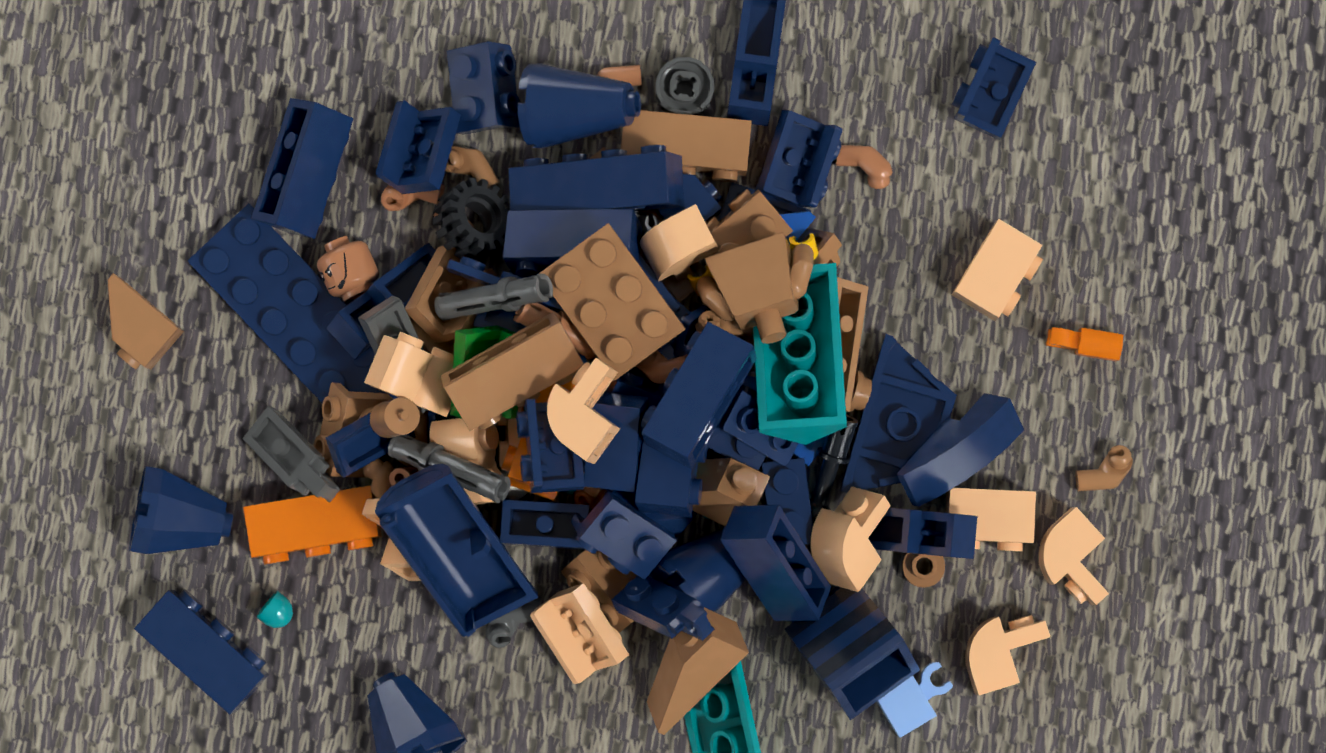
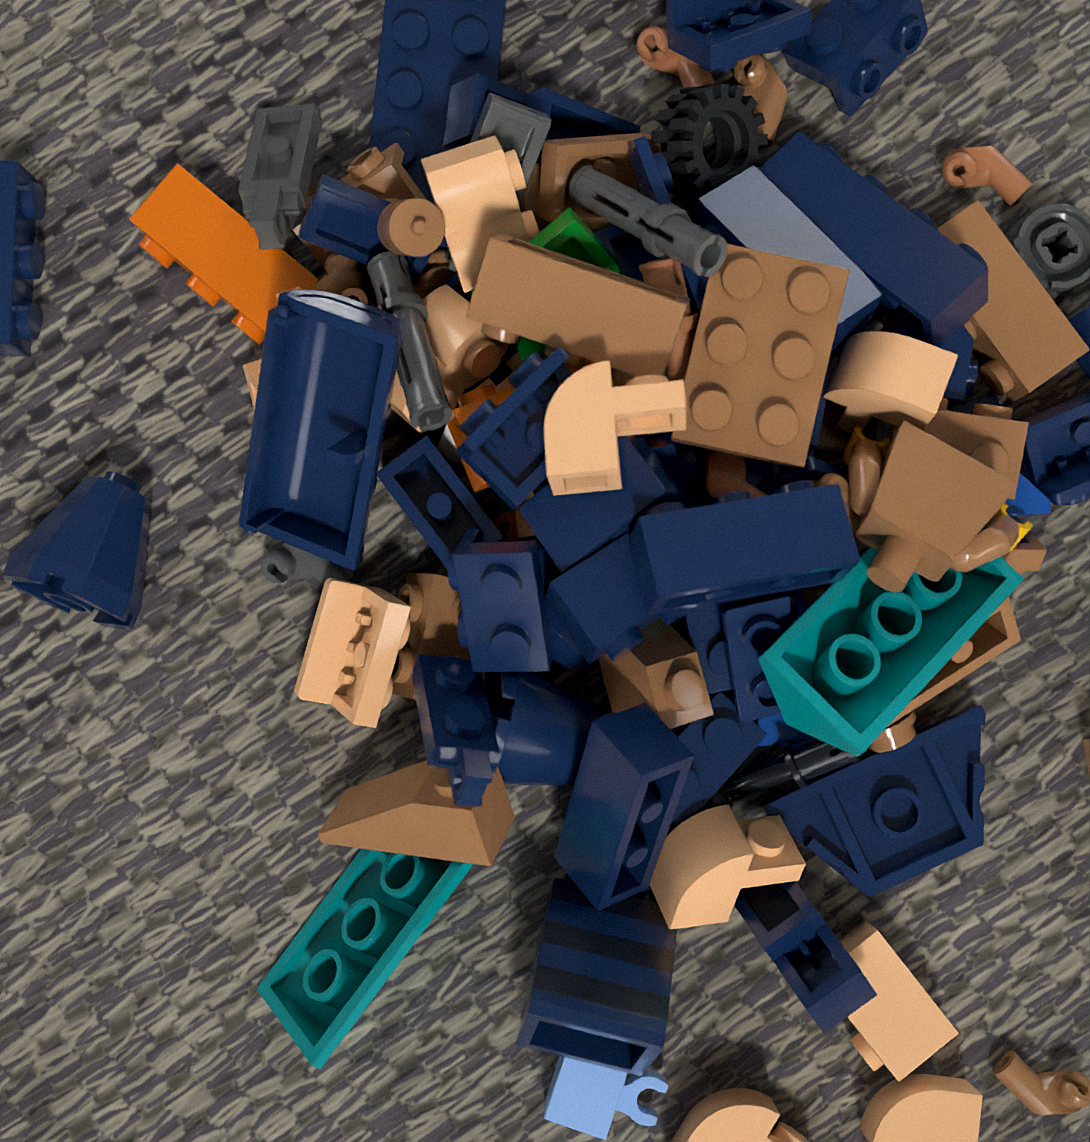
camera: 55 degrees right, 0 degrees up
(176, 515) = (105, 97): dark blue cone -> none
(276, 611) = (101, 303): teal hinge -> none
(347, 268) = (537, 53): nougat head -> none
(572, 105) = (932, 135): dark blue cone -> none
(920, 580) = (738, 974): medium nougat plate -> none
(960, 449) = (931, 904): dark blue slope -> none

